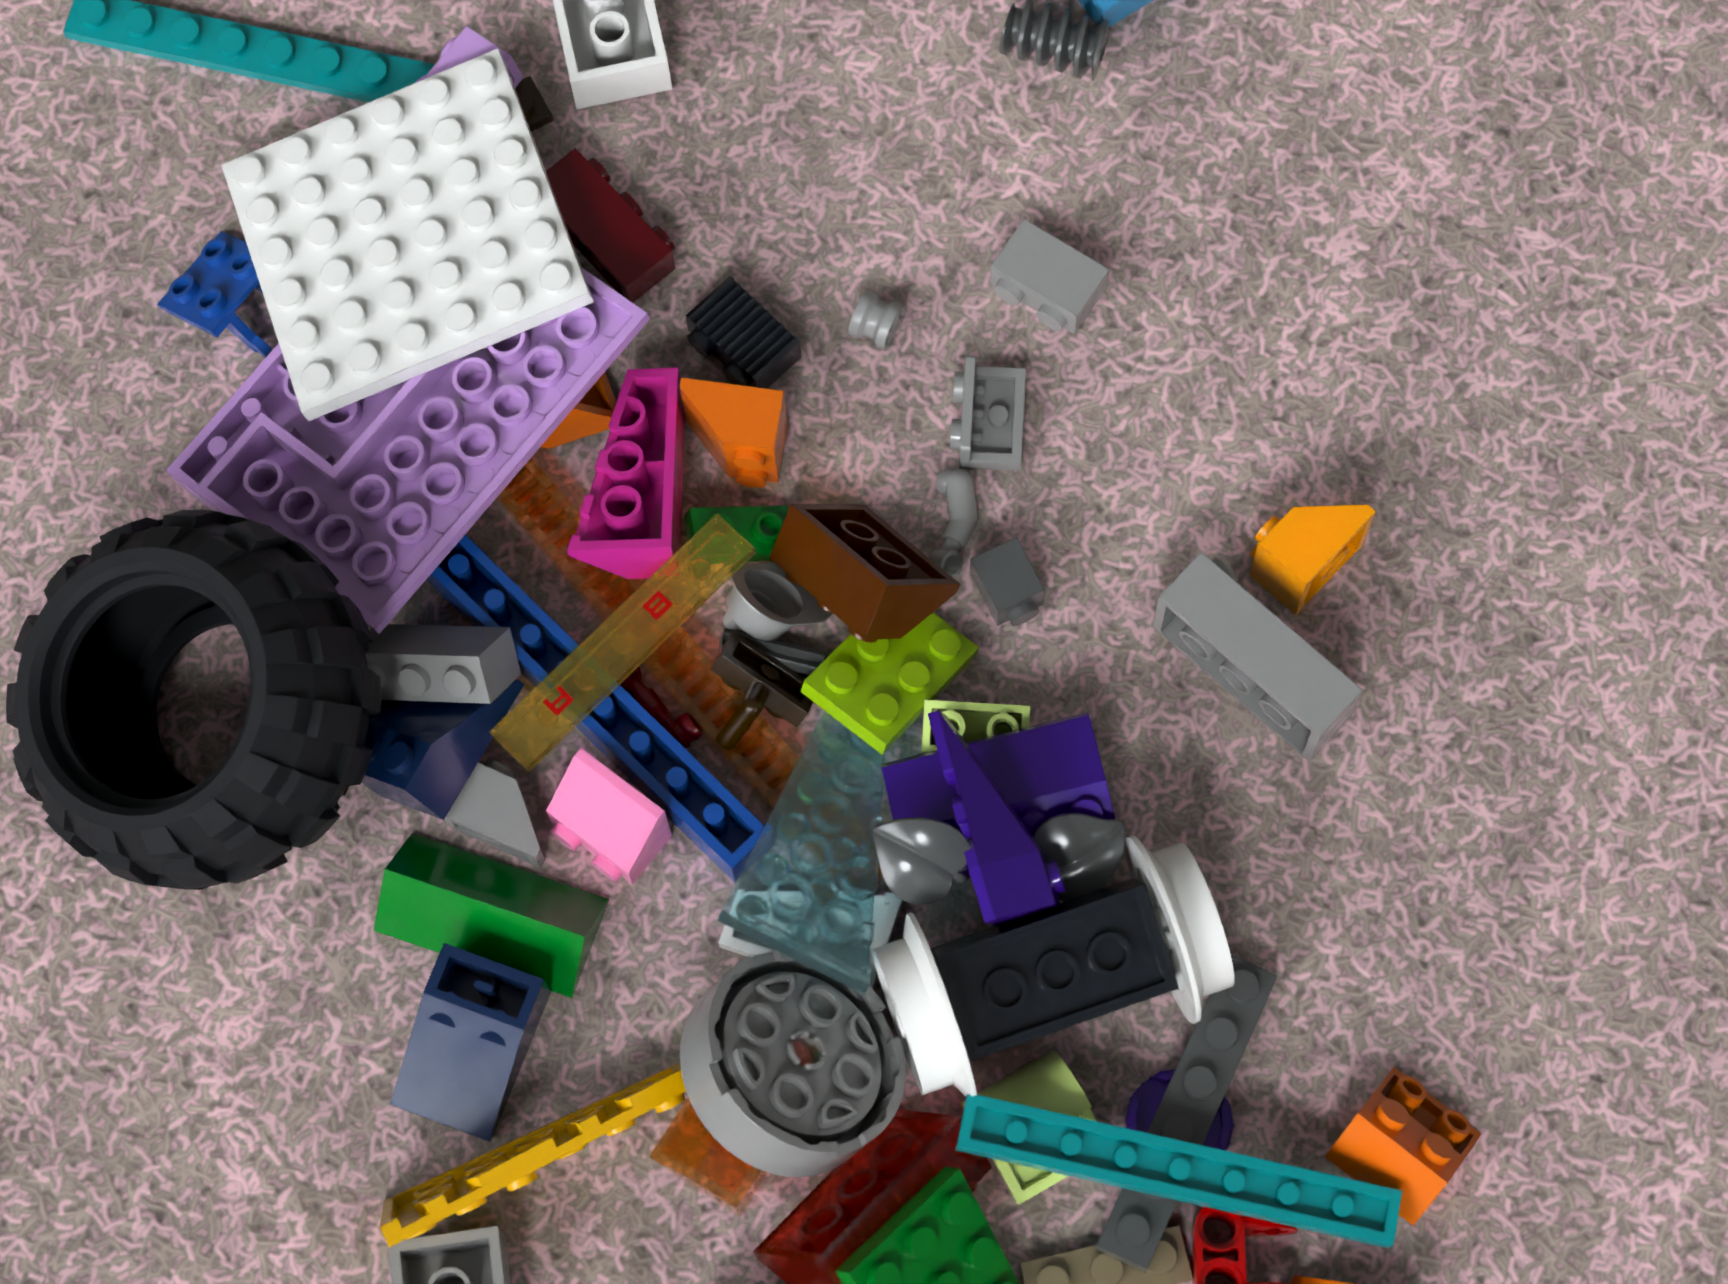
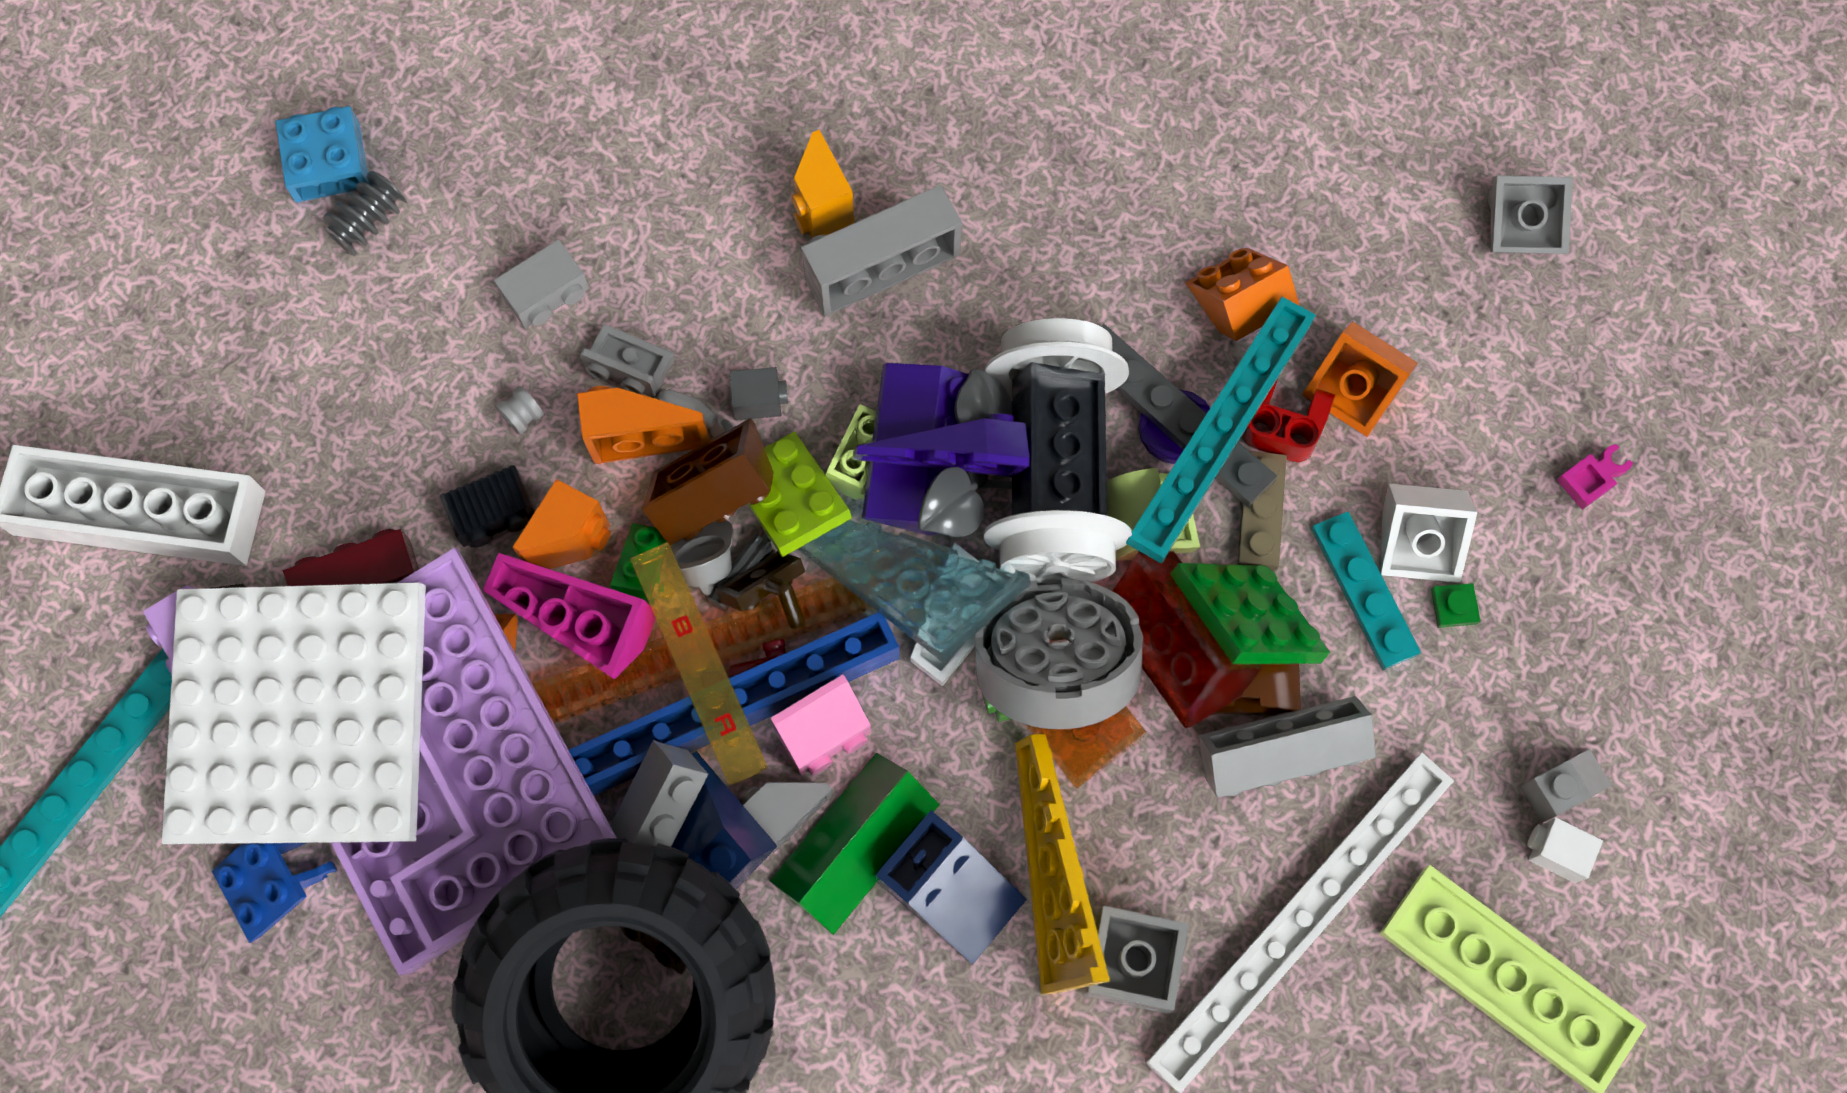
camera: 75 degrees left, 0 degrees up
(892, 437) = (632, 425): none -> orange slope

